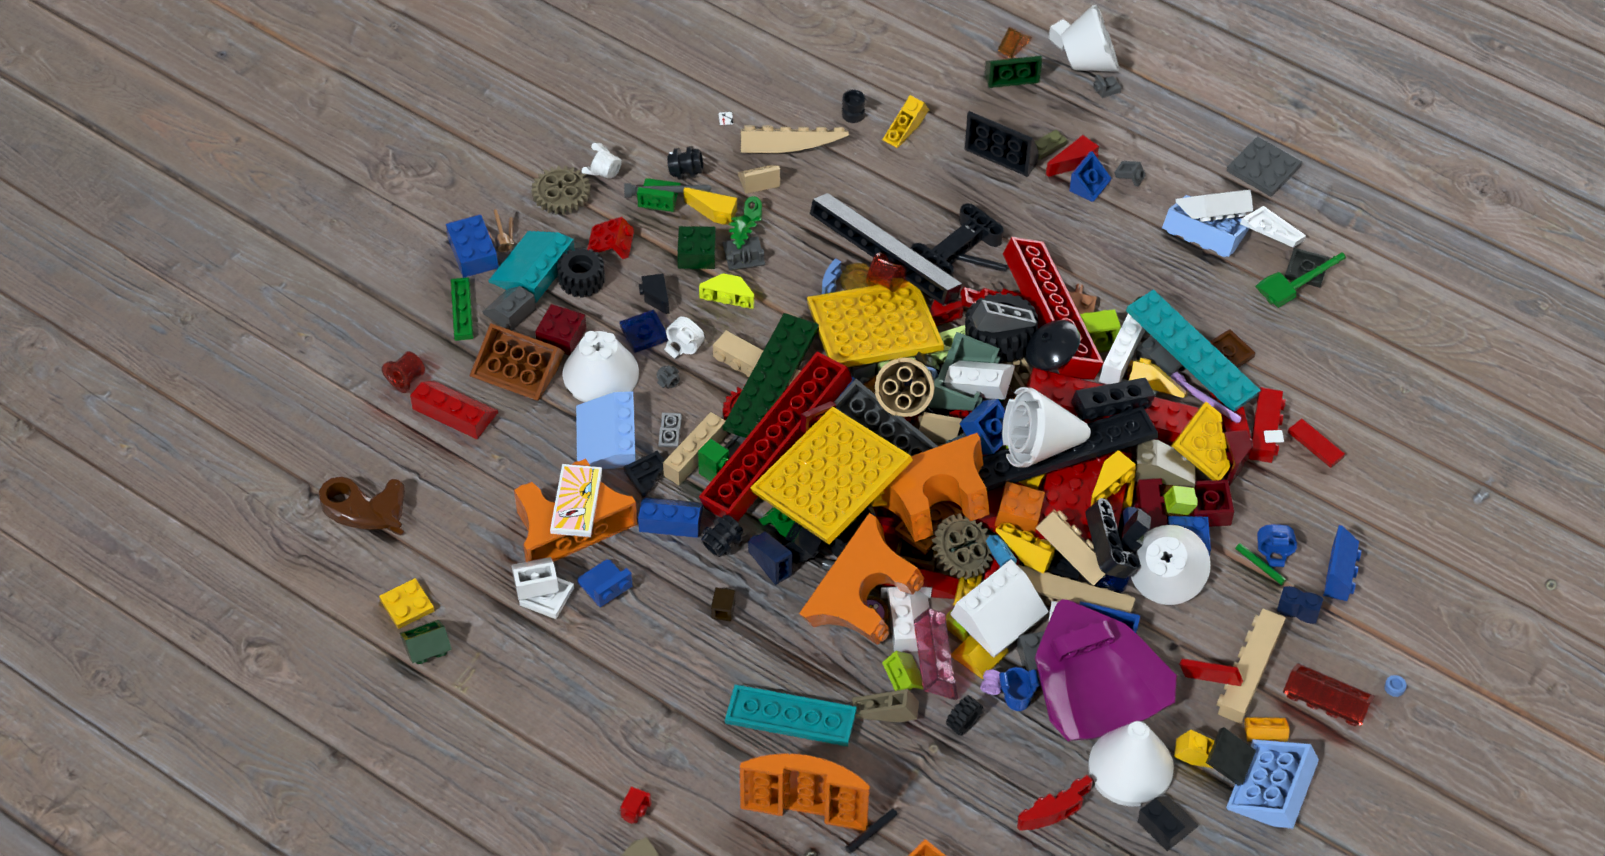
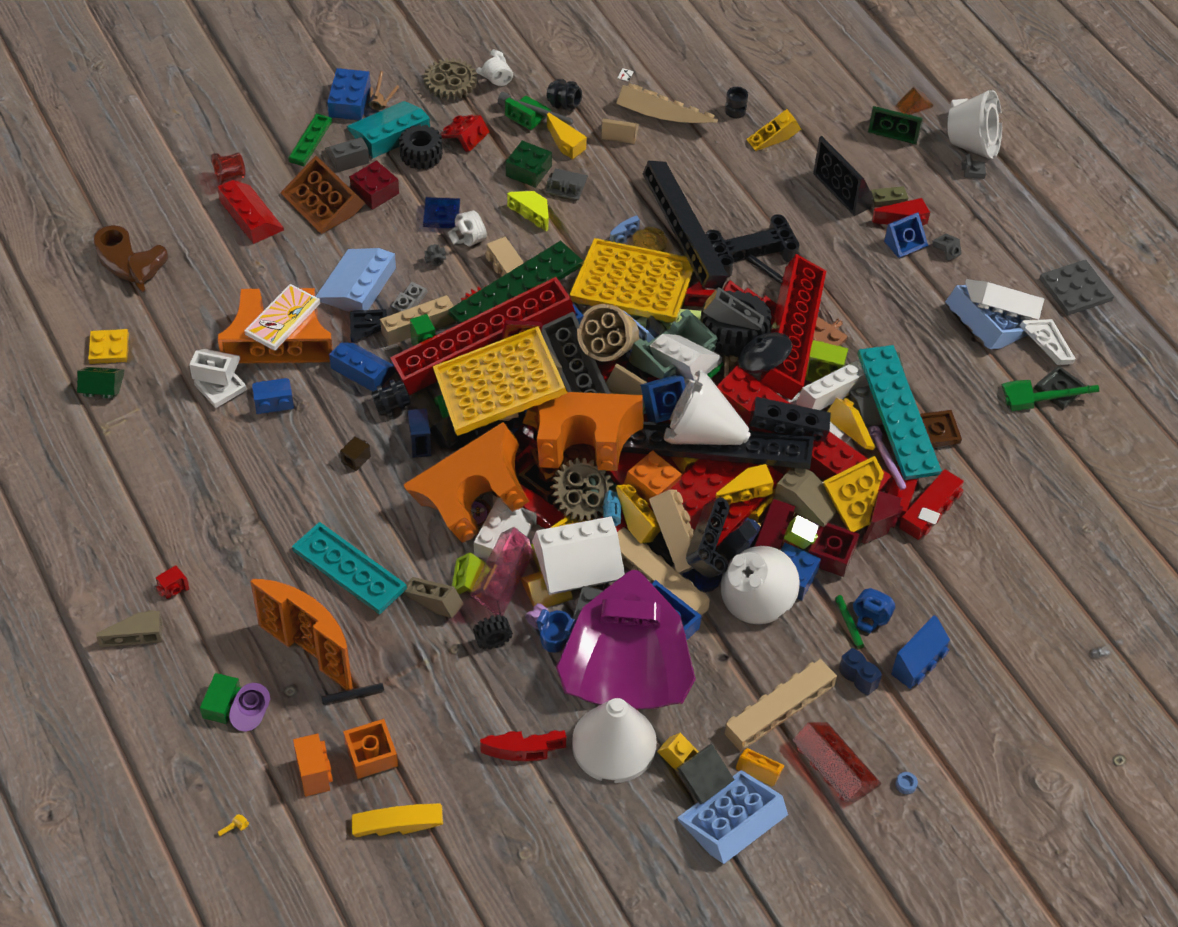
camera: 25 degrees right, 0 degrees up
(599, 367) = (386, 225): white cone -> none
(655, 292) = (471, 185): black slope -> none
(744, 223) = (595, 155): green plant -> none
(885, 273) = (668, 242): clear red piece -> none
(1166, 821) = (613, 804): black slope -> none
(1211, 672) = (735, 692): red tile -> none
(1316, 443) = (970, 539): red tile -> none

